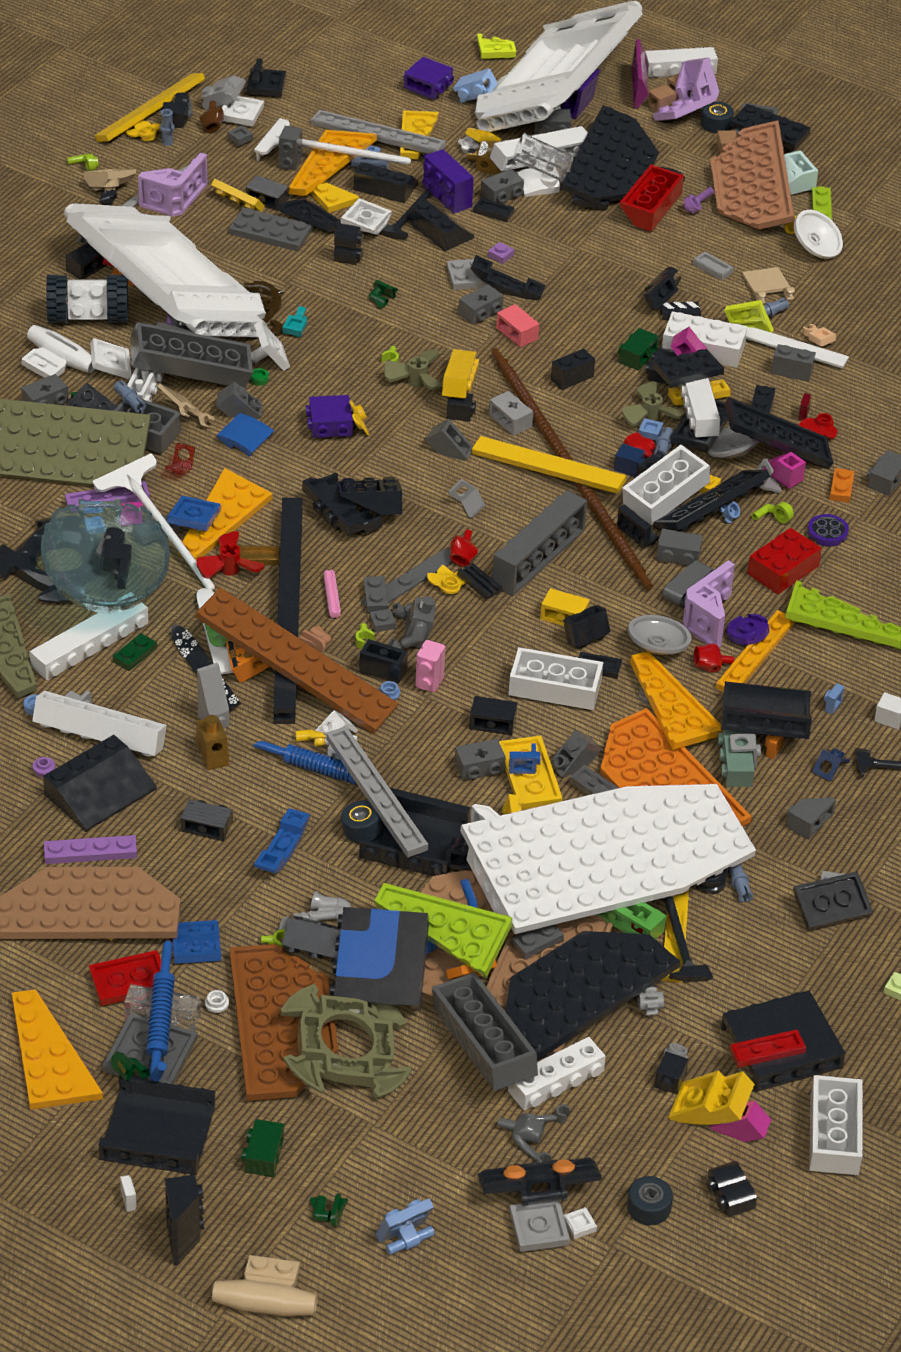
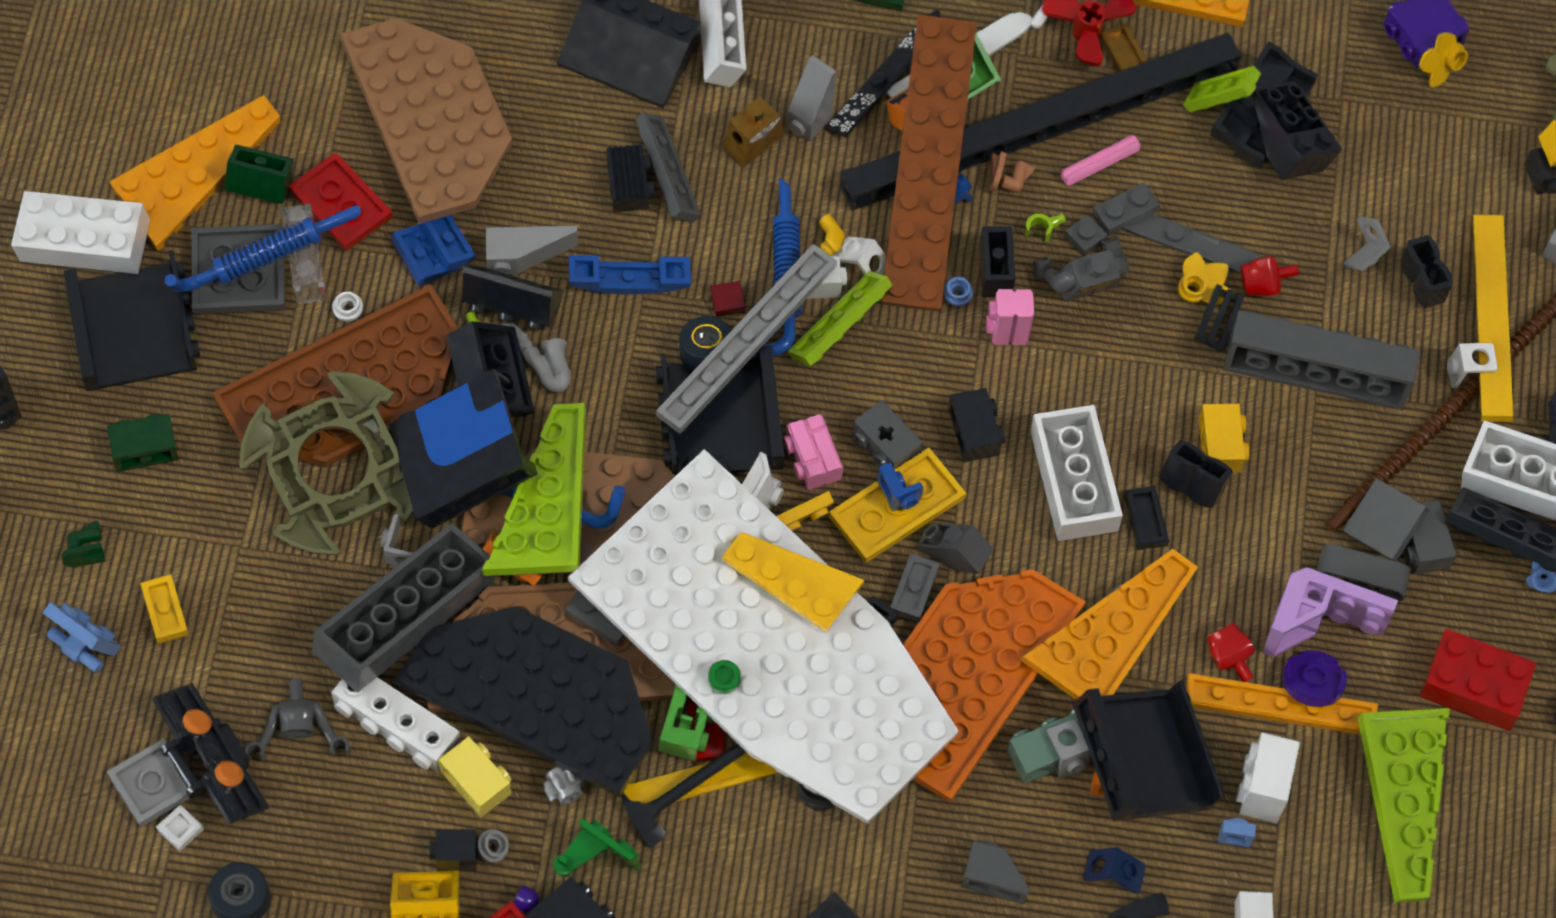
camera: 65 degrees right, 20 degrees up
(68, 1127) = (80, 232): none -> white brick
(83, 1010) = (259, 174): none -> dark green brick
(90, 849) = (526, 80): medium lavender plate -> none
(126, 1065) = (199, 254): dark green piece -> none
(128, 1193) = (19, 331): white tile -> none
(225, 897) = (520, 248): none -> light grey slope
(242, 800) = (668, 167): none -> dark grey plate
(269, 904) = (510, 296): none -> black slope
(325, 512) = (1222, 89): none -> lime plate
(327, 804) = (727, 298): none -> dark red tile
(379, 750) = (840, 318): none -> lime plate
(405, 1177) = (164, 609): none -> yellow plate
(423, 1035) = (389, 541): none -> light grey bracket
(449, 441) = (1467, 183): dark grey slope -> none
(470, 793) = (813, 451): none -> bright pink brick
(502, 478) = (1425, 270): none -> black brick
(576, 484) = (1462, 363): none -> white bracket
(582, 812) = (799, 582): none -> yellow wing
(623, 1045) = (476, 776): none -> light yellow brick
(629, 874) = (724, 677): none -> green tile
(635, 527) = (1434, 470): black bracket -> none
(659, 634) = (1238, 558): light grey dish -> none
(662, 556) = (1386, 520): none -> dark grey tile
(704, 990) = (591, 842): none -> green plate
(721, 1050) = (526, 899): none -> dark purple hinge
(740, 883) = (831, 825): sand blue pin -> none
(809, 666) = (1267, 777): none -> white brick

